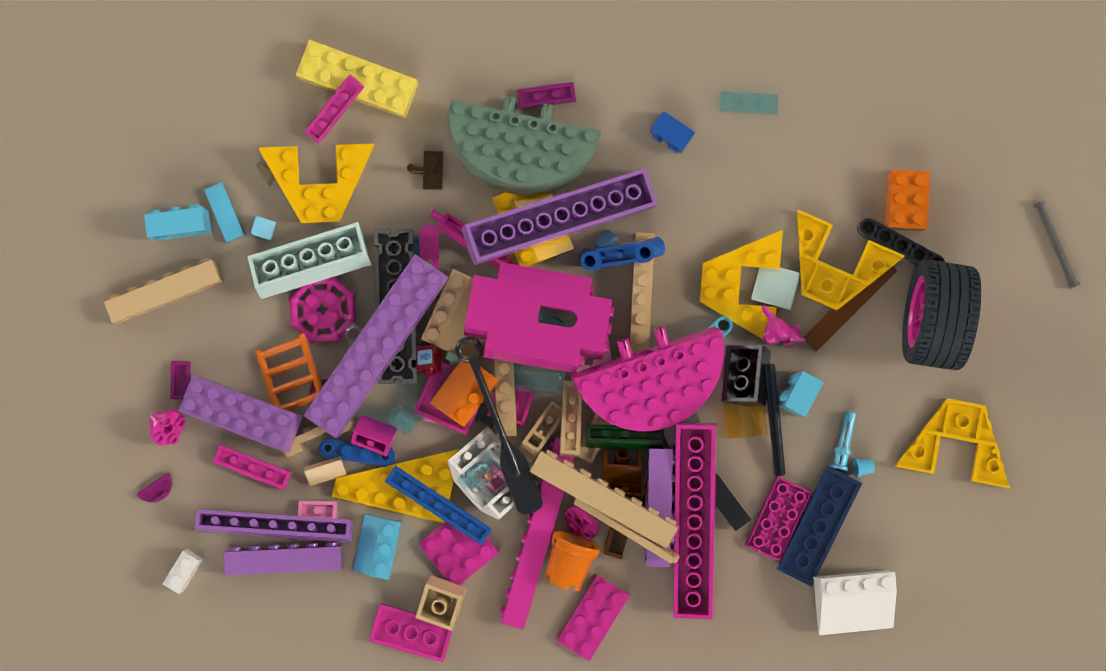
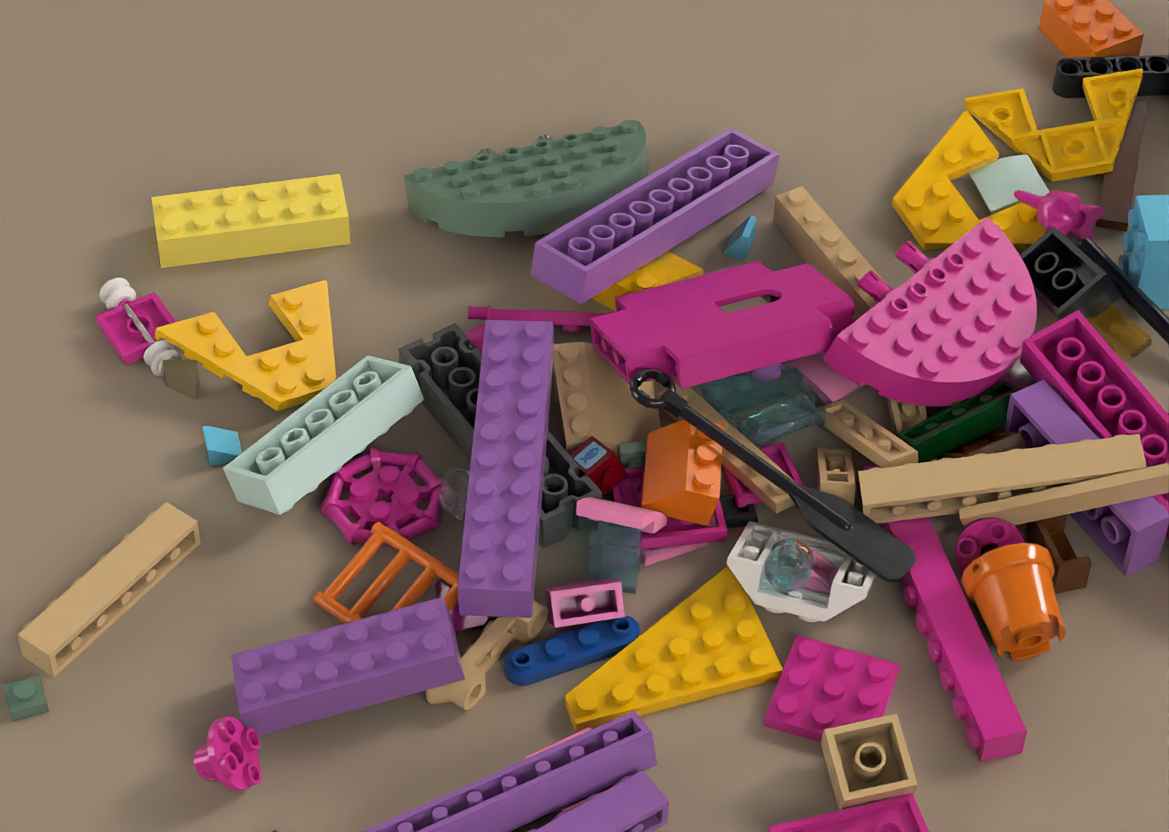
camera: 30 degrees left, 40 degrees down
(97, 331) = (26, 697): none -> sand green plate
(177, 223) = (83, 483): medium azure brick -> none
(179, 378) = (211, 691): magenta tile -> none
(224, 212) = (147, 455): medium azure tile -> none
(252, 467) = (414, 749): dark pink plate -> none
(262, 121) = (133, 323): none -> dark pink plate
(325, 471) = (539, 694): tan tile -> none
(334, 108) = (240, 255): dark pink tile -> none
(377, 546) = (703, 751): medium azure slope -> none
(413, 406) = (621, 514): none -> bright pink slope
(431, 170) = (428, 273): dark brown plate -> none
(438, 505) = (757, 641): blue tile -> none
(547, 95) = (553, 123): magenta tile -> none
(593, 617) = (1116, 681): dark pink plate -> none
(619, 254) = (774, 221): blue plate -> none
(671, 132) = (733, 95): blue brick -> none
(749, 102) = (805, 34): clear light blue tile -> none

